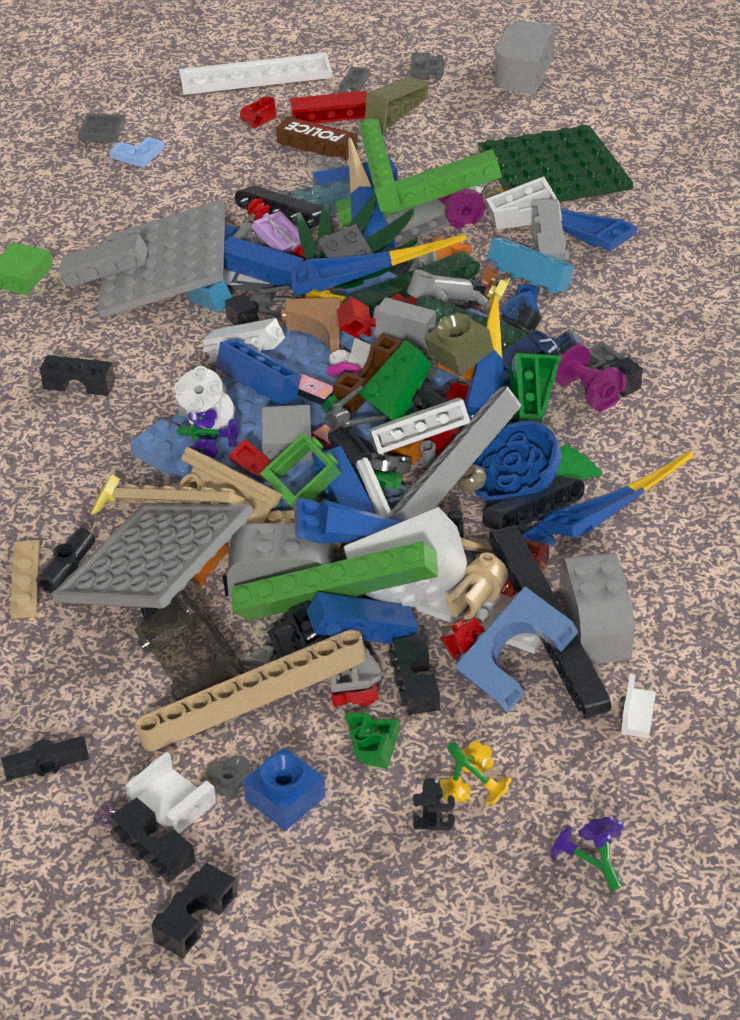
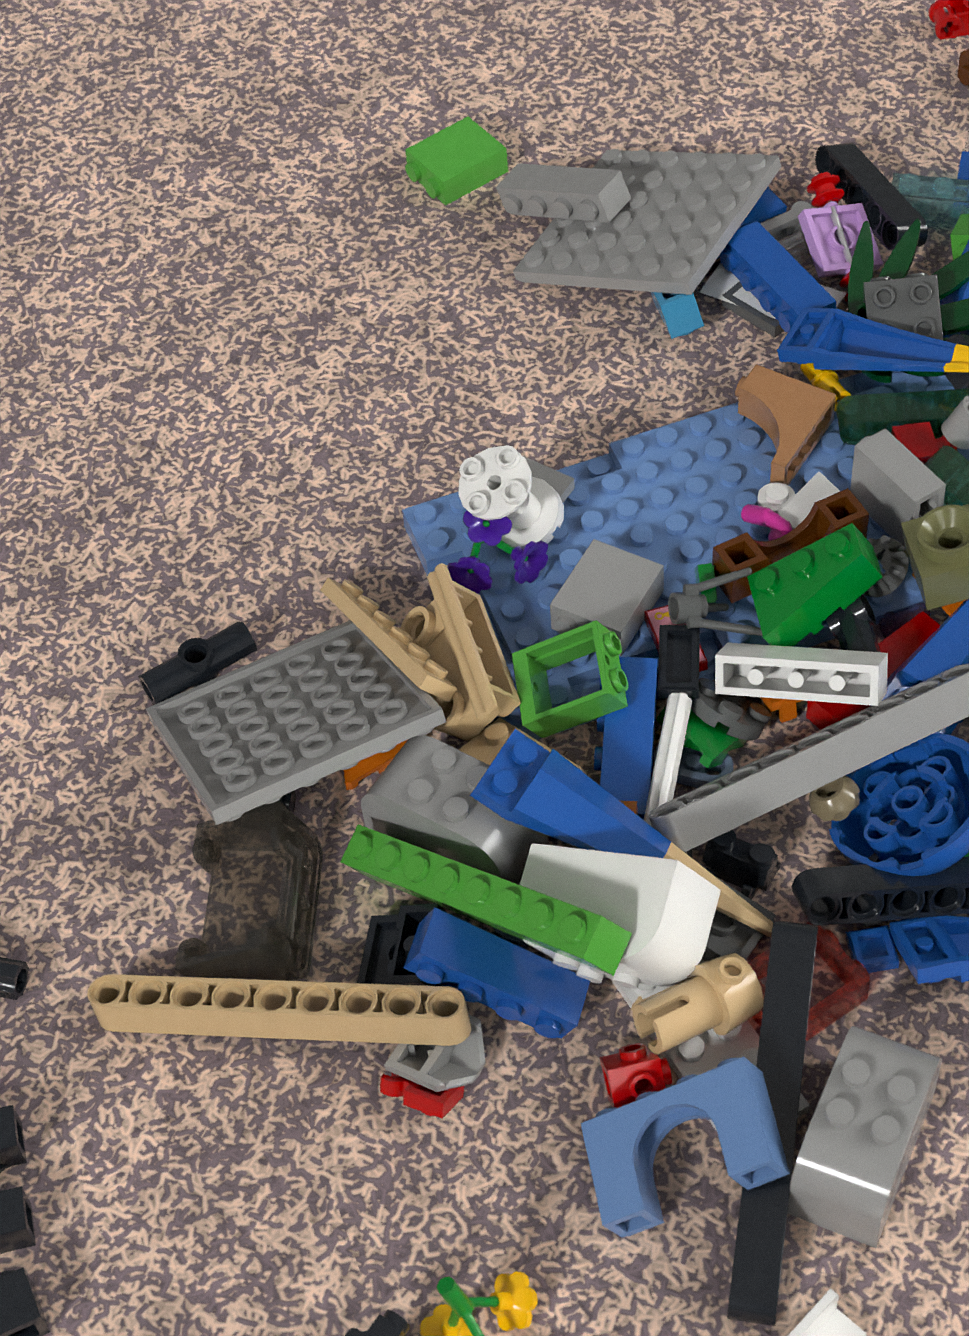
camera: 35 degrees right, 10 degrees up
(24, 574) = (143, 652): tan plate -> none
(93, 374) = (432, 378): black arch -> none
(106, 494) = (315, 581): light yellow plate -> none
(137, 155) = (743, 30): light blue plate -> none
(170, 794) = (69, 1119): white panel -> none
(229, 775) = (178, 1128): dark grey plate -> none
(241, 310) = (704, 351): black brick -> none
(249, 458) = (527, 616): red plate -> none
(258, 371) = (635, 473): blue brick -> none
(259, 335) = (659, 405): white brick -> none
(259, 657) = (340, 952): light grey tile -> none
(263, 299) = (752, 343): dark grey plant -> none
(284, 788) = (216, 1225): blue piece -> none
(314, 389) = (697, 529): tile -> none
(355, 318) = (831, 439): red brick -> none
(368, 746) = (383, 1189): green slope -> none
(417, 691) = (533, 1067): black arch -> none
(428, 453) = (803, 720): light grey pin -> none

